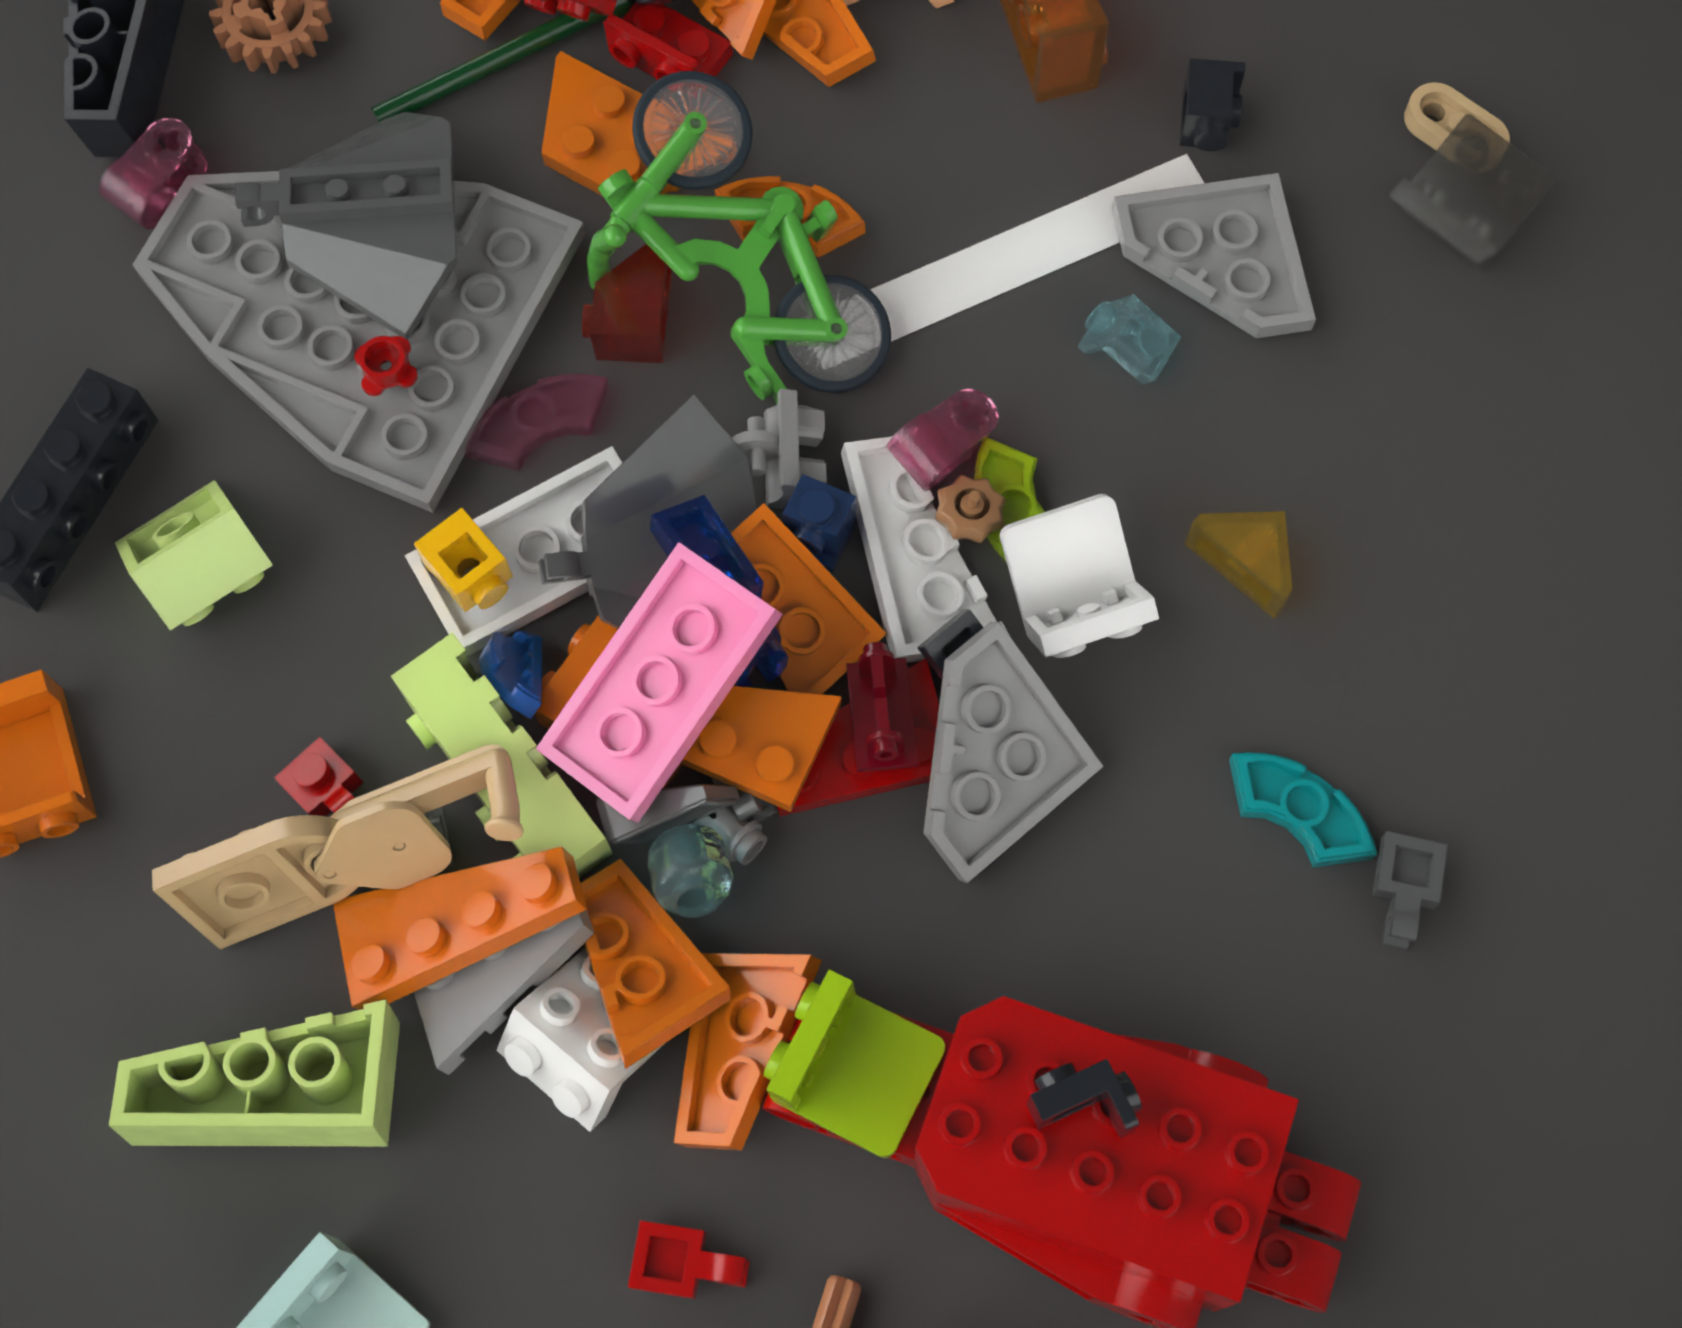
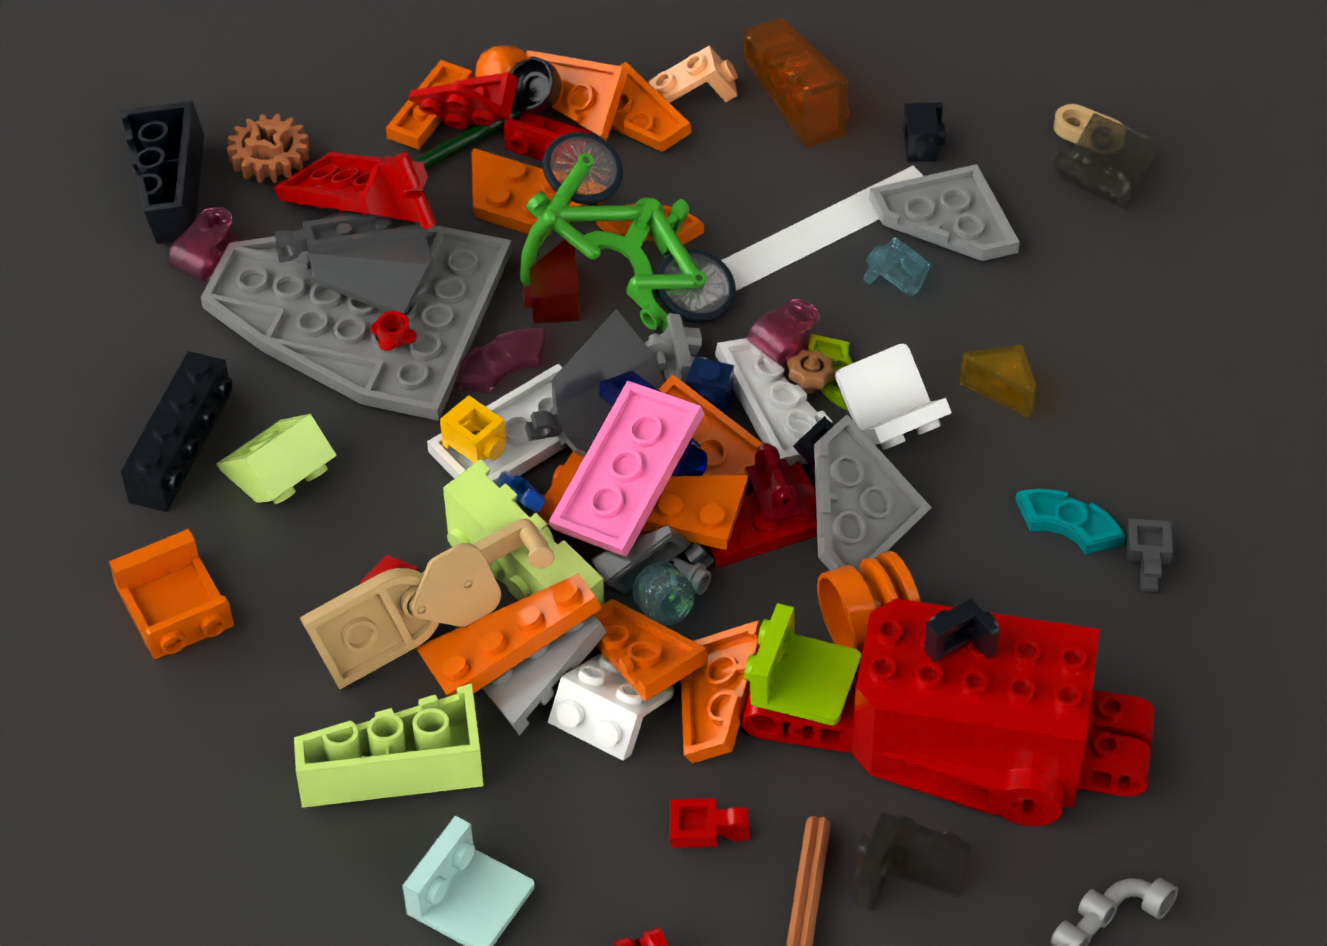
camera: 10 degrees left, 20 degrees down
(376, 115) = (362, 185): none -> red hinge
(980, 941) = (851, 595): none -> orange wheel

